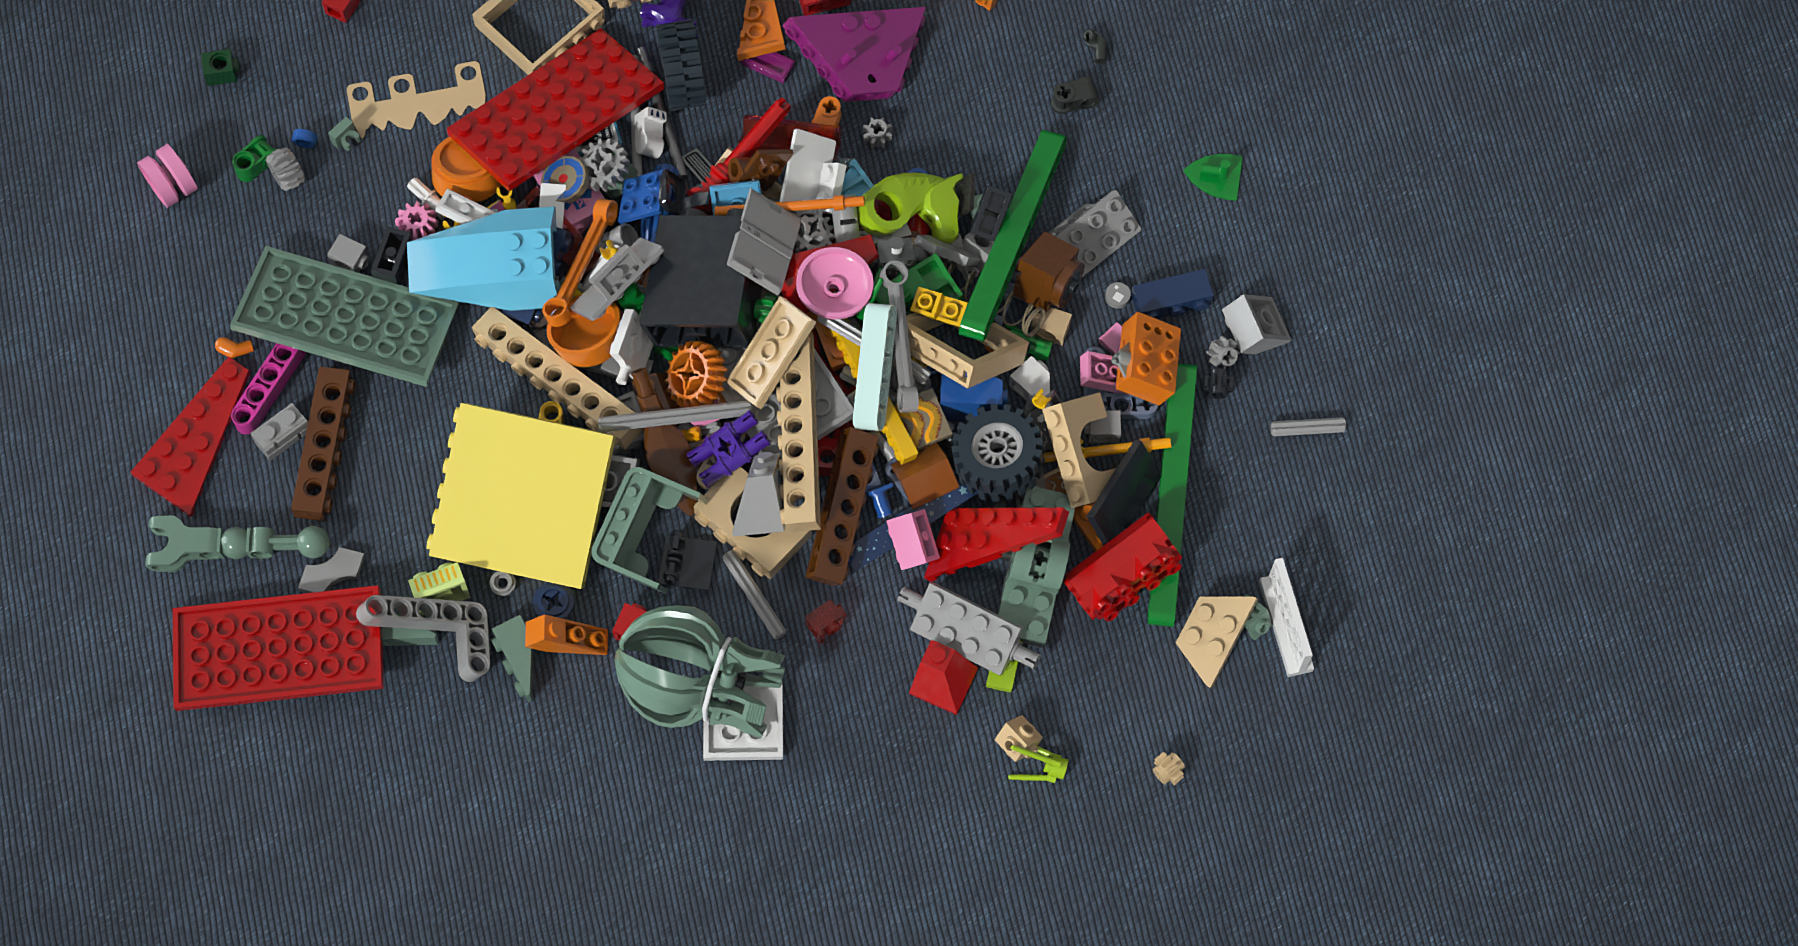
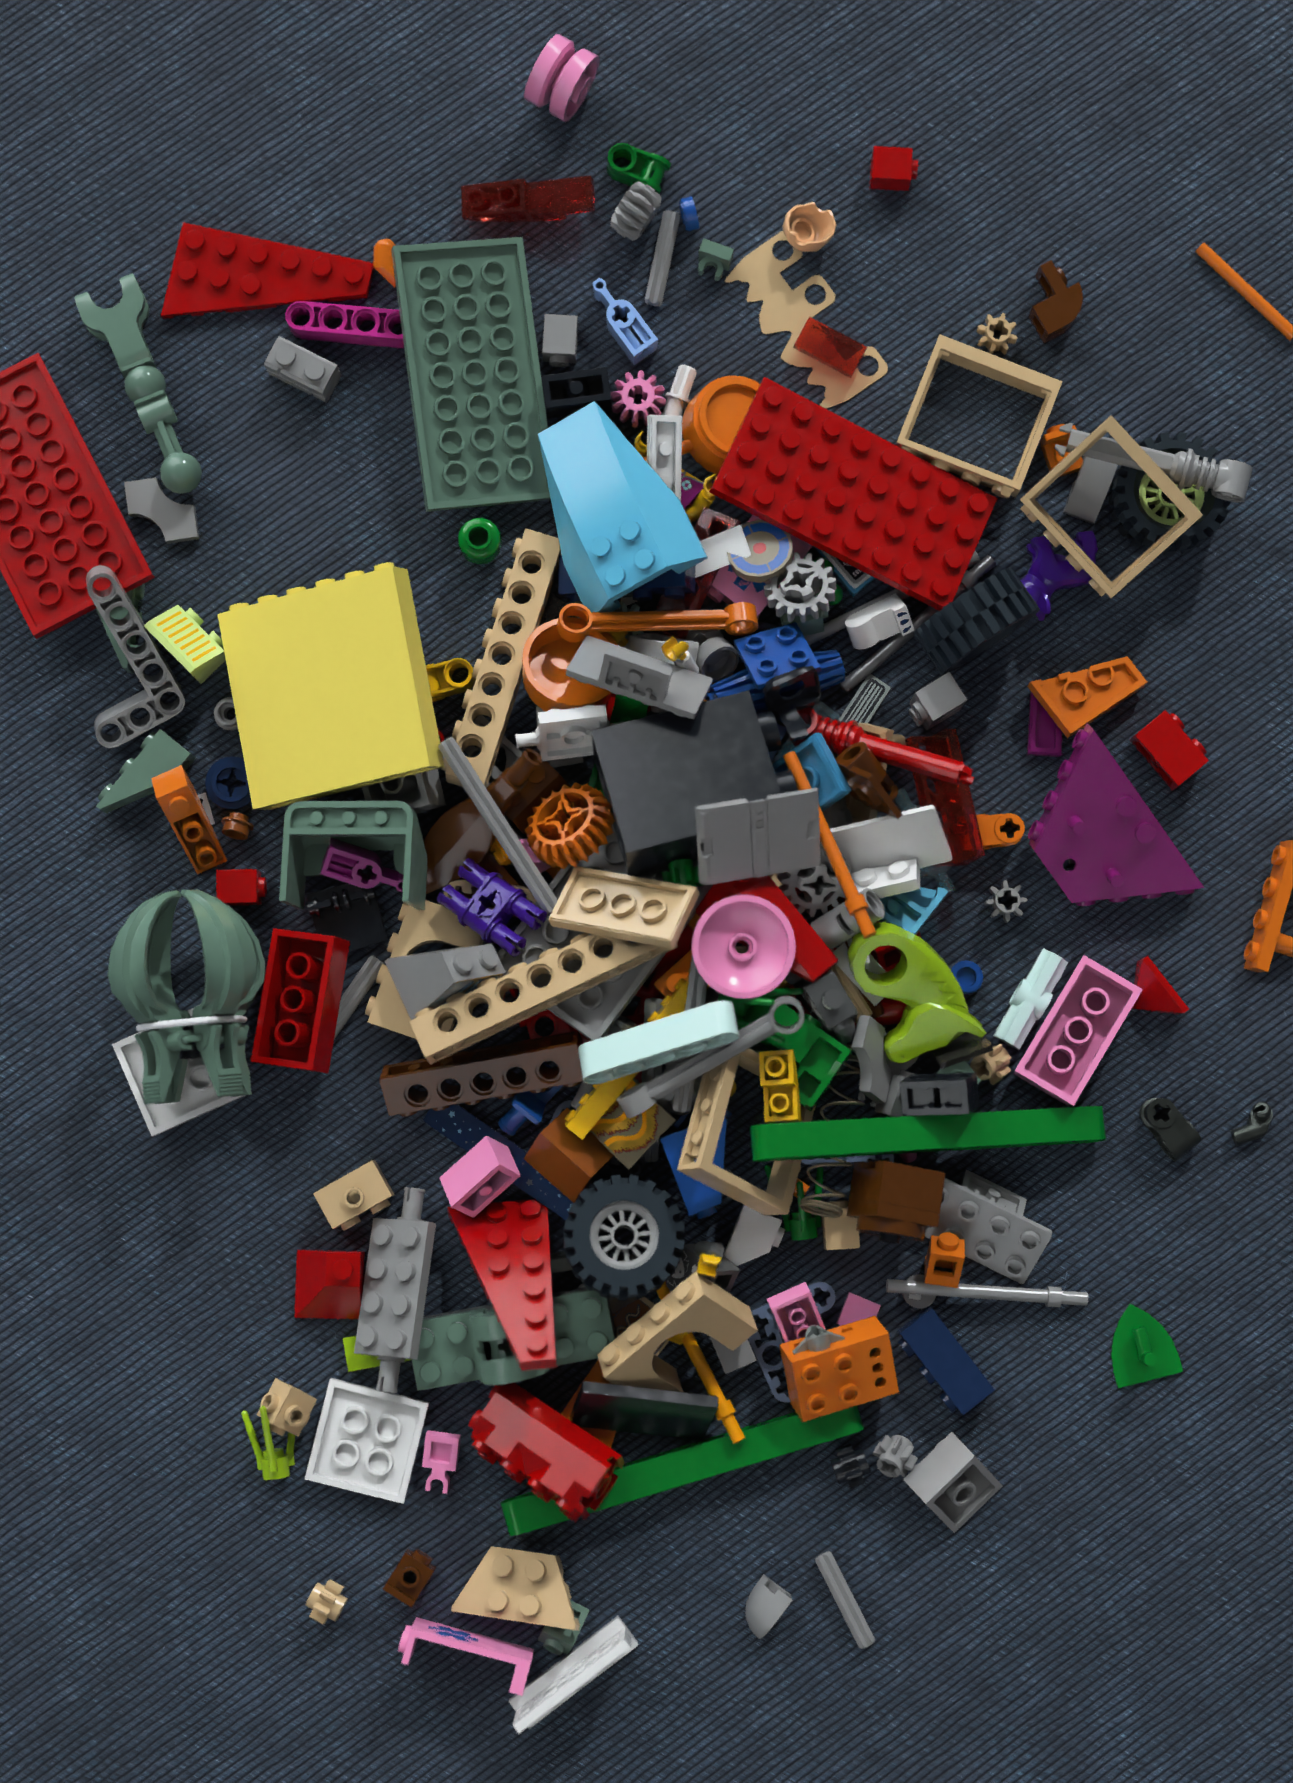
camera: 70 degrees right, 15 degrees up
(213, 60) = (737, 55): dark green brick -> none
(240, 236) = (526, 201): none -> clear red slope
(325, 169) = (662, 258): none -> light grey axle
(328, 382) = (292, 418): reddish brown brick -> none
(355, 67) = (808, 227): none -> light nougat hair
(370, 208) = (632, 336): none -> light blue piece
(444, 88) = (830, 347): none -> clear red plate
(464, 362) = (479, 540): none -> green head
(586, 610) = (236, 826): none -> dark orange plate
(654, 535) = (346, 861): none -> magenta piece
(722, 116) = (936, 702): none -> light grey brick
(735, 607) = (300, 1000): none -> red brick
(825, 620) = (340, 1114): clear red brick -> none
(887, 634) = (353, 1195): none -> tan brick
(950, 144) = (1030, 999): none -> light aqua piece
(979, 67) = (1157, 991): none -> red slope
(983, 178) = (992, 1064): none -> tan gear
(986, 121) = (1077, 1031): none -> bright pink brick
(1065, 696) = (367, 1440): none -> white plate
(1097, 650) = (441, 1455): none -> bright pink plate
(1103, 266) = (944, 1252): none -> orange brick
(1156, 215) = (1050, 1296): none -> light grey bar
(1174, 713) = (400, 1588): none -> reddish brown brick
(1269, 651) = (471, 1643): none -> bright pink panel
(1292, 478) = (765, 1606): none -> light grey brick

